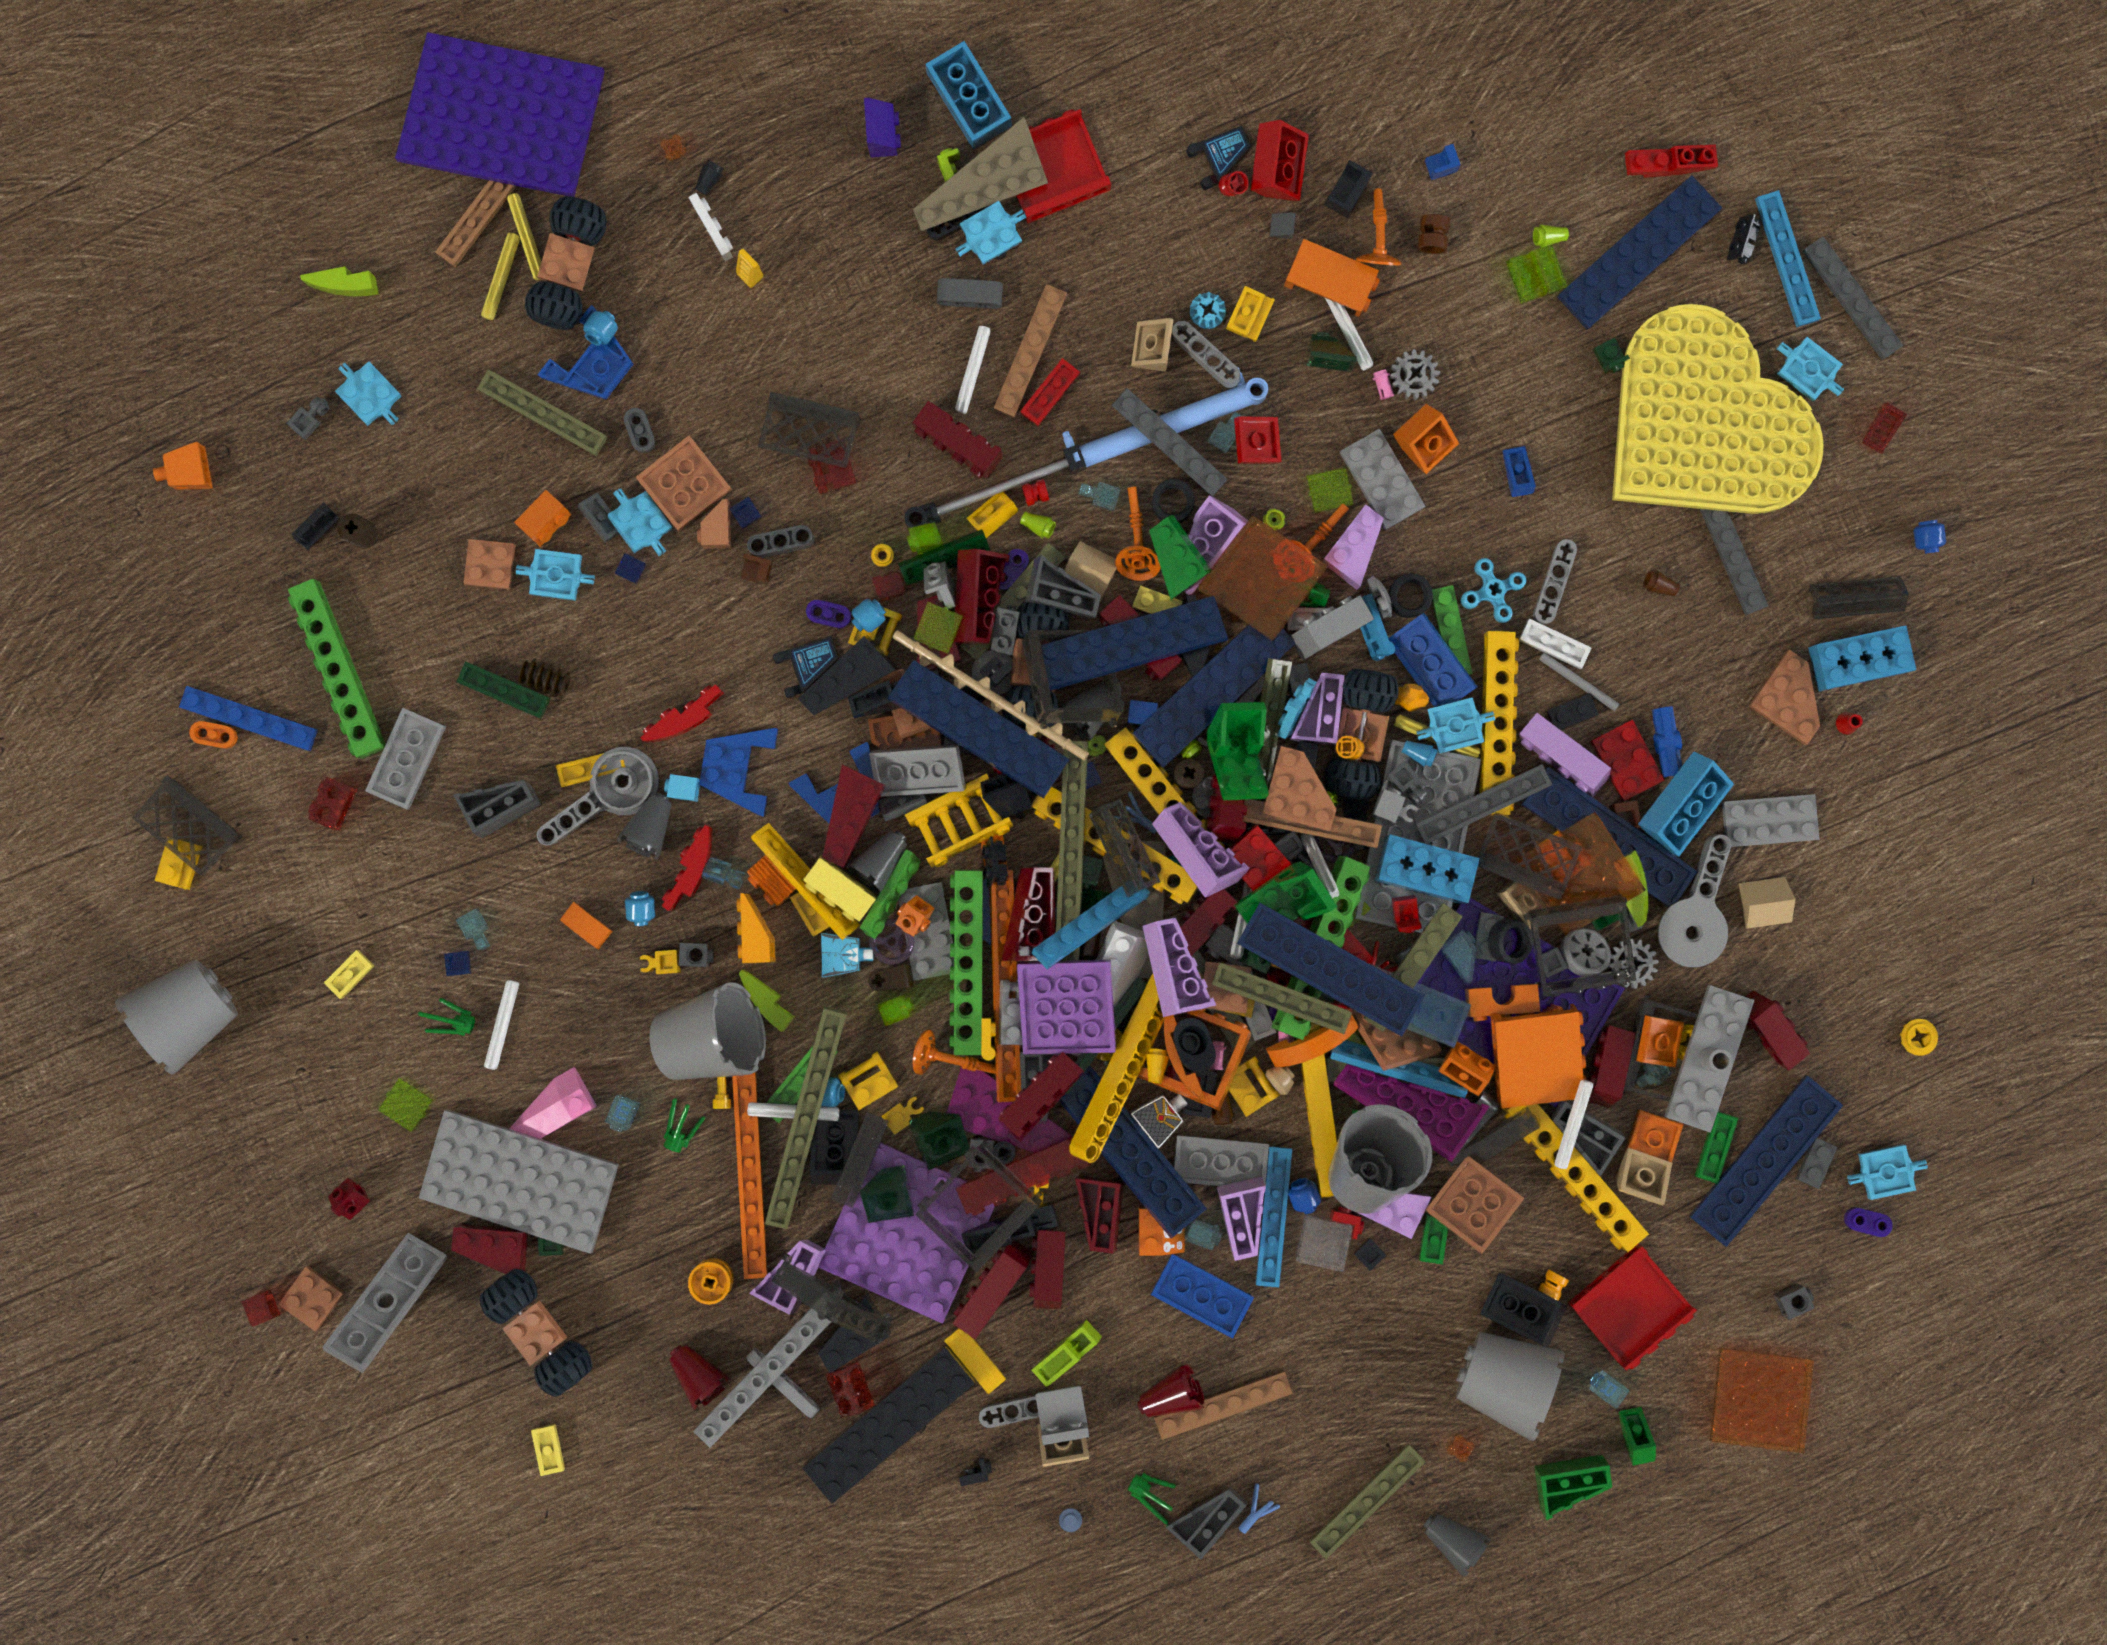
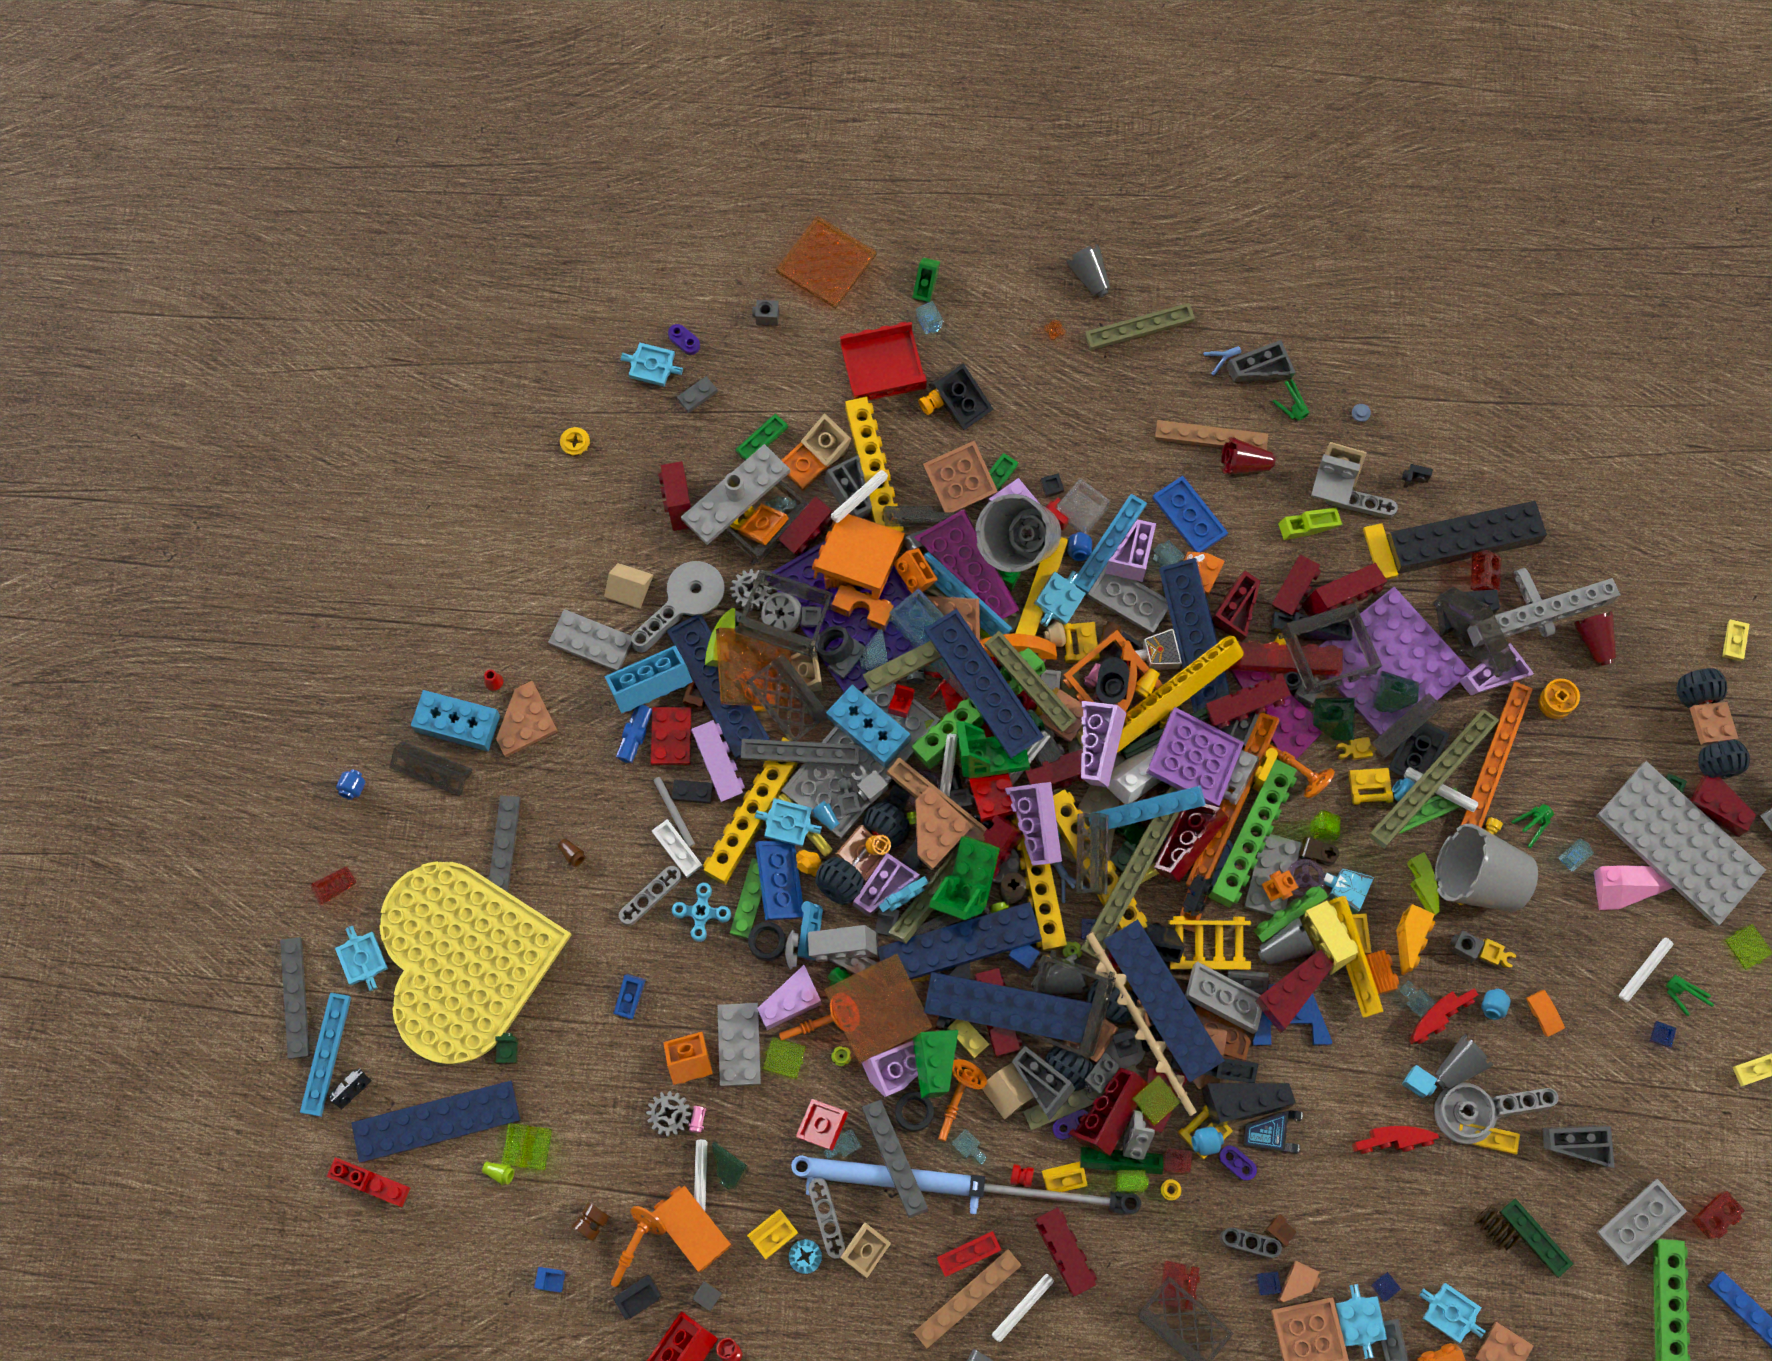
camera: 155 degrees left, 15 degrees down
(473, 926) = (1638, 1058): clear light blue plate -> none
(727, 767) = (1375, 1082): blue wing -> none
(1040, 525) = (1031, 1148): lime cone -> none
(1296, 1121) = (1059, 598): none -> medium azure plate
(1510, 1381) = (999, 349): light grey cone -> none
(1570, 1482) = (989, 270): green wedge -> none
(1765, 1160) = (732, 412): dark blue plate -> none

